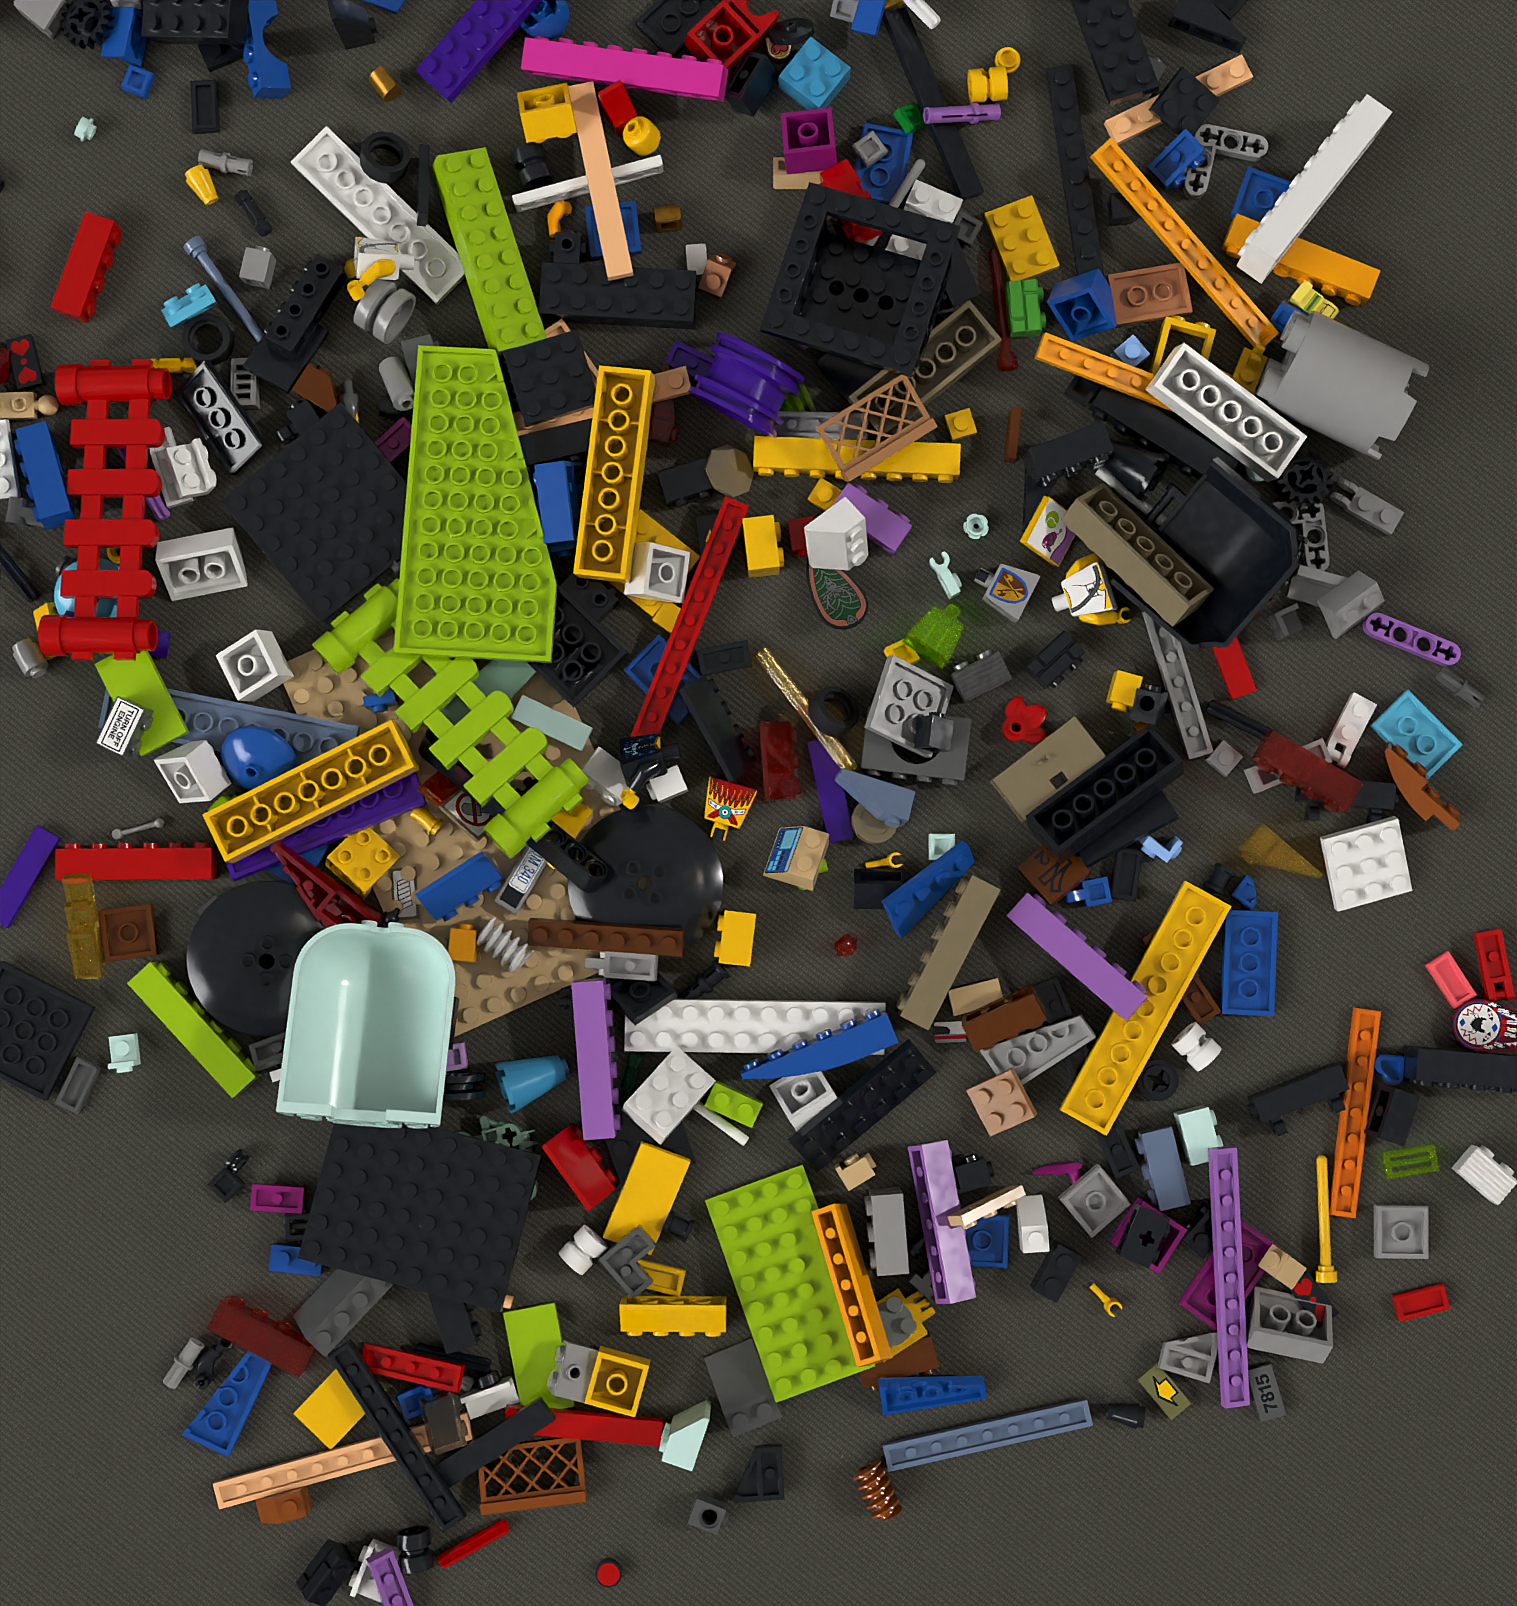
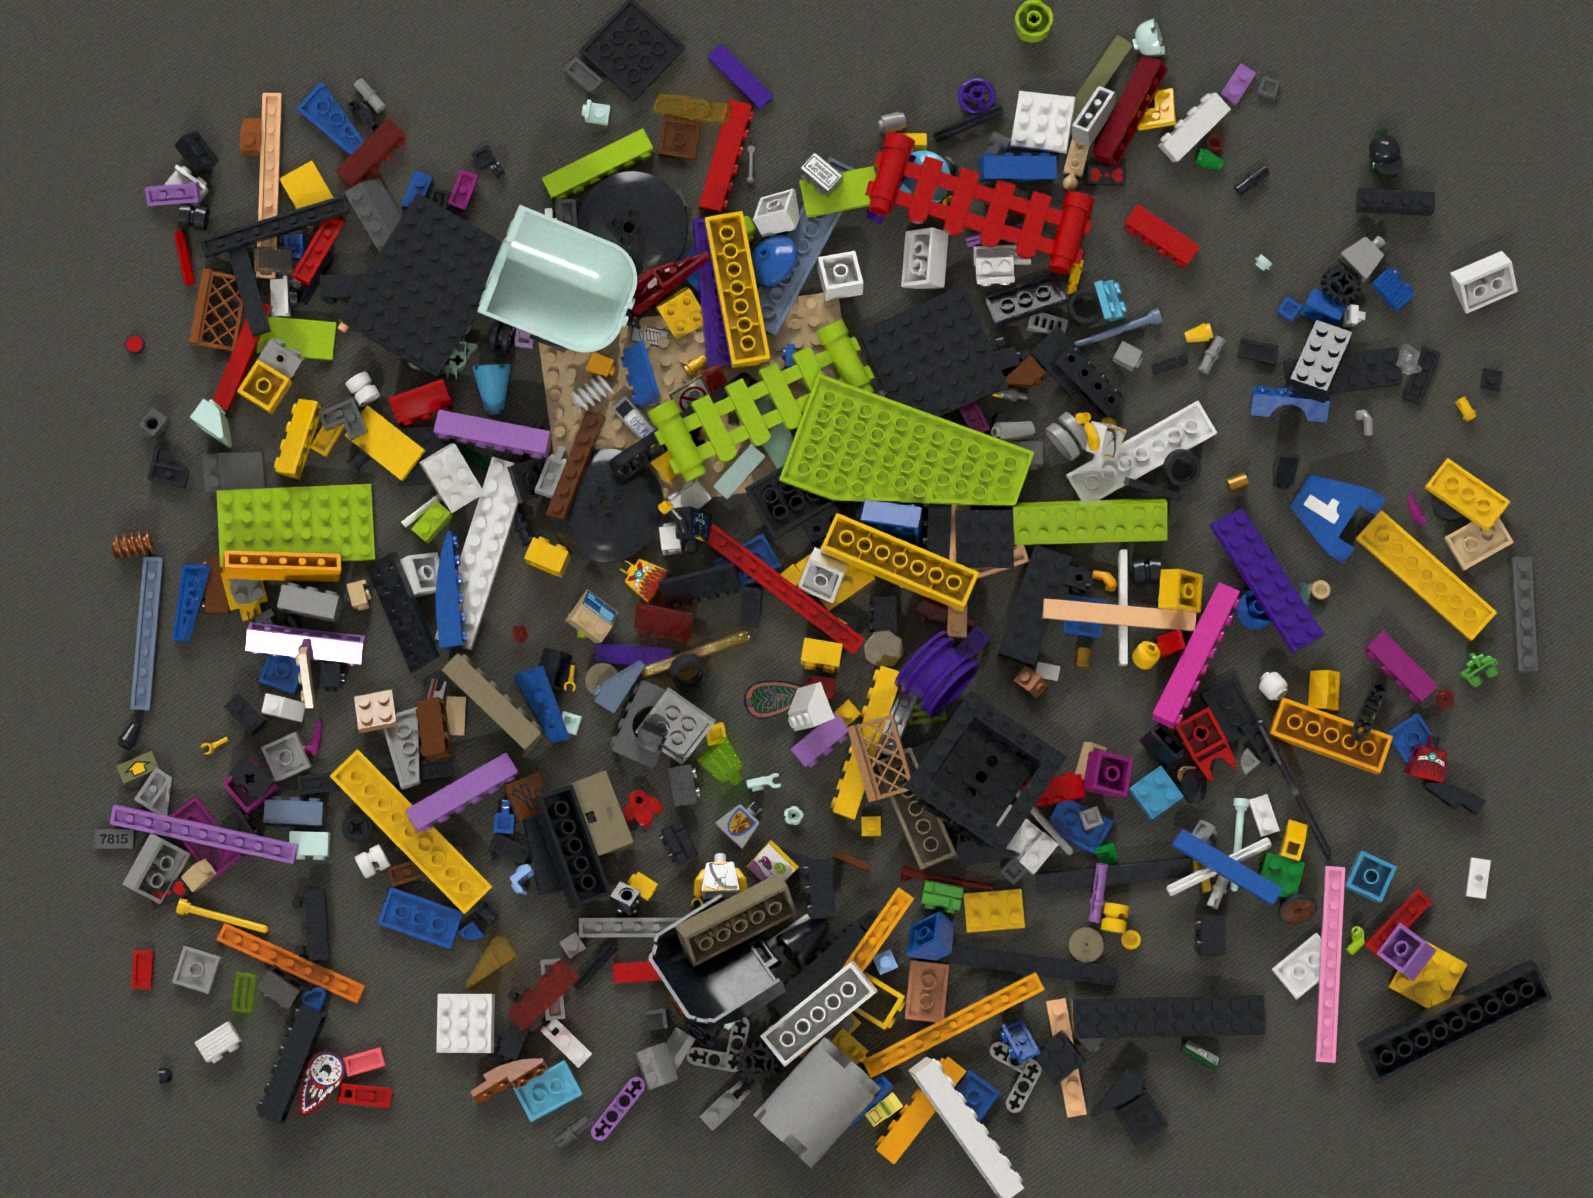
camera: 105 degrees right, 5 degrees down
(1030, 115) = (1086, 944): none -> dark tan piece

